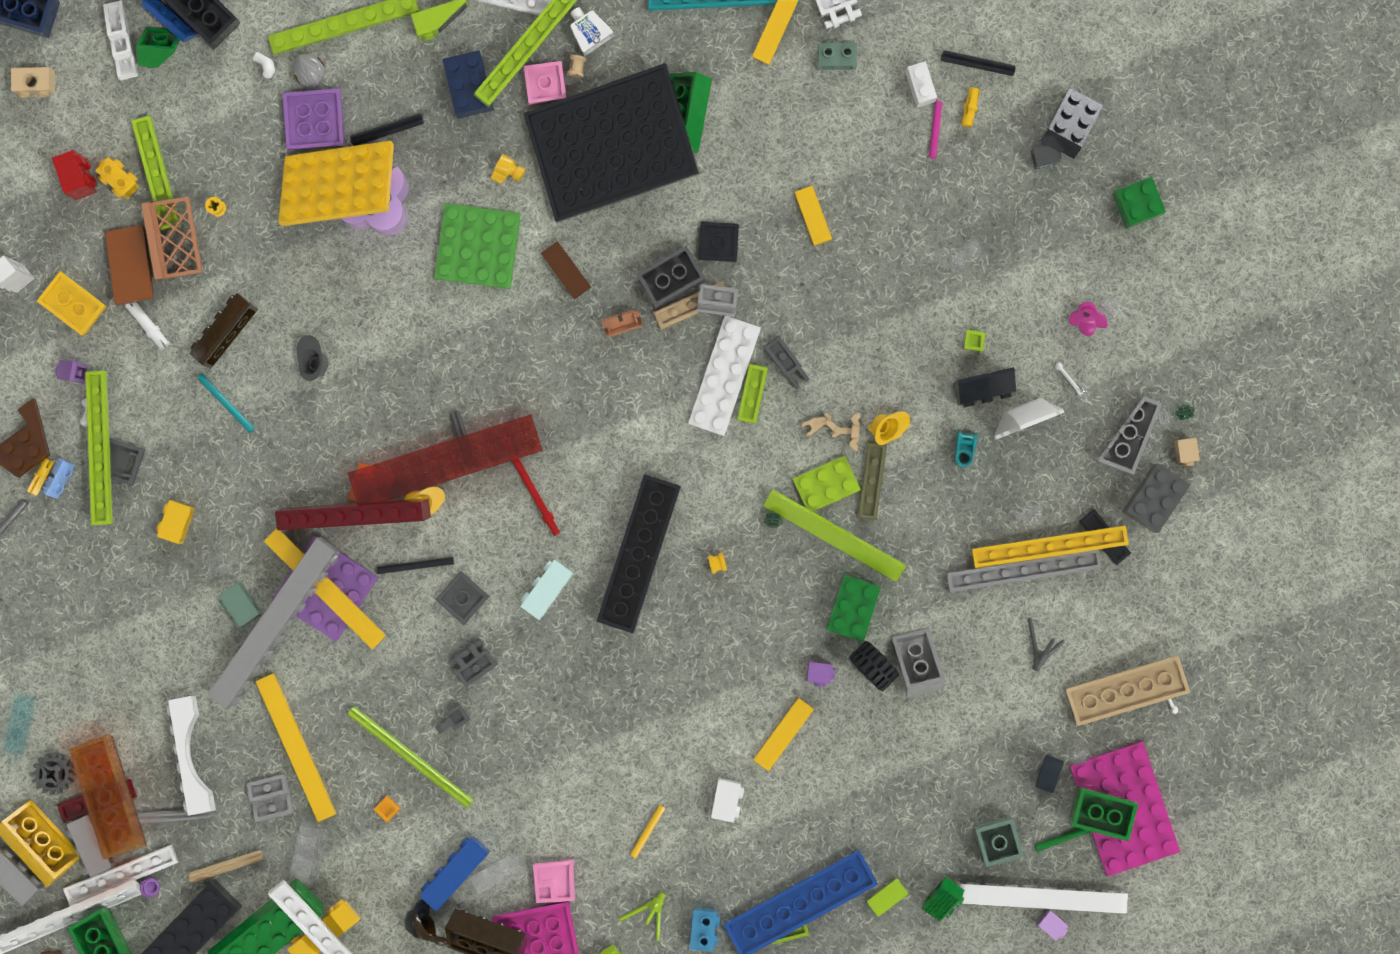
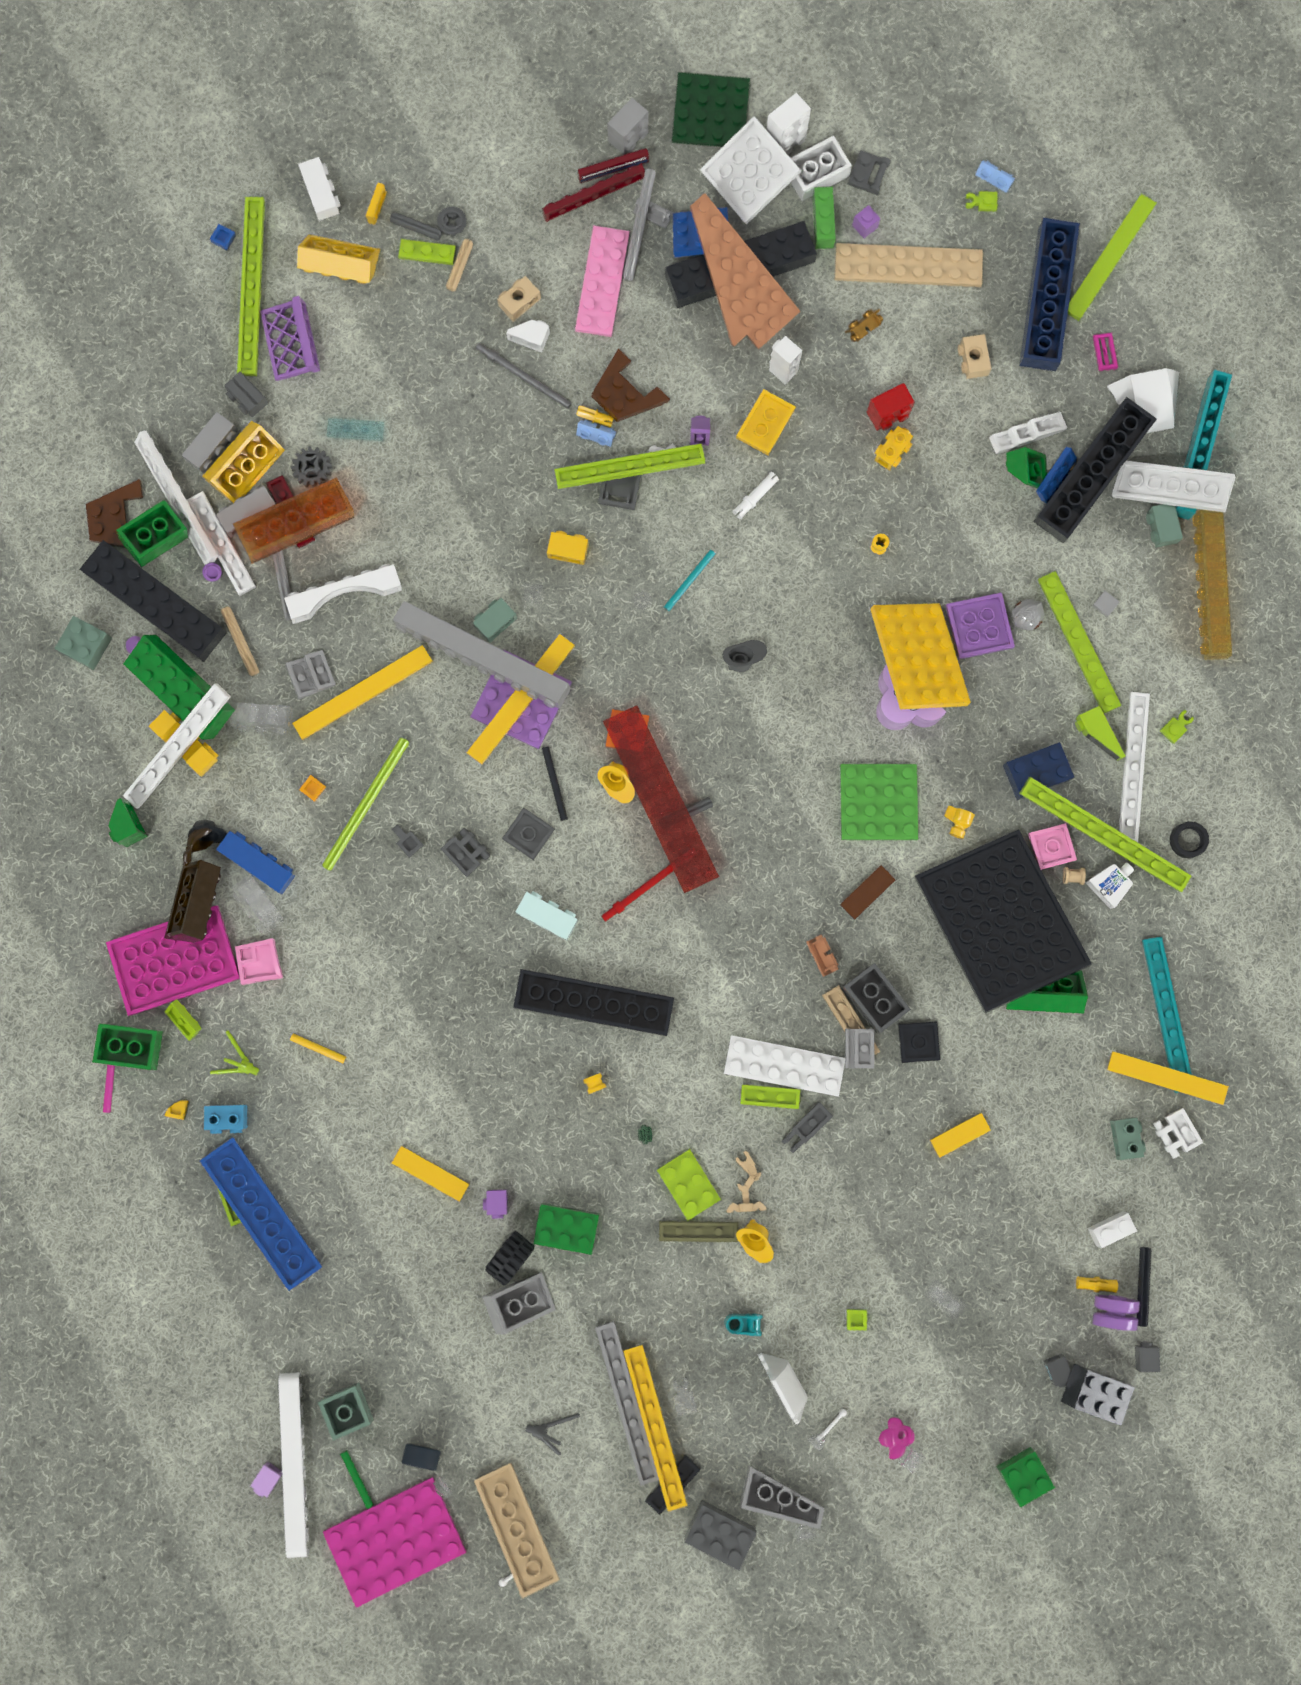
camera: 80 degrees right, 5 degrees down
(129, 265) = (810, 471): dark orange tile -> none
(154, 167) = (904, 483): lime plate -> none
(155, 242) = (838, 491): nougat fence -> none
(223, 330) = (759, 567): dark brown slope -> none
(267, 65) = (1027, 574): white arm -> none
(353, 514) = (596, 716): dark red brick -> none
(386, 129) = (981, 698): black axle -> none
(726, 800) = (357, 1124): white brick -> none
(834, 535) = (637, 1200): lime tile -> none
(887, 897) = (277, 1302): lime tile -> none
(935, 129) = (1068, 1250): dark pink bar -> none
(943, 899) = (280, 1361): green brick -> none
(985, 387) = (810, 1337): black slope -> none
(997, 93) = (1116, 1311): none -> medium lavender wheel
(1044, 70) = (1147, 1357): none -> dark grey brick
(1103, 813) = (386, 1520): green brick -> none
(1185, 412) = (814, 1554): clear green plate -> none
(1186, 451) = (772, 1561): tan brick -> none

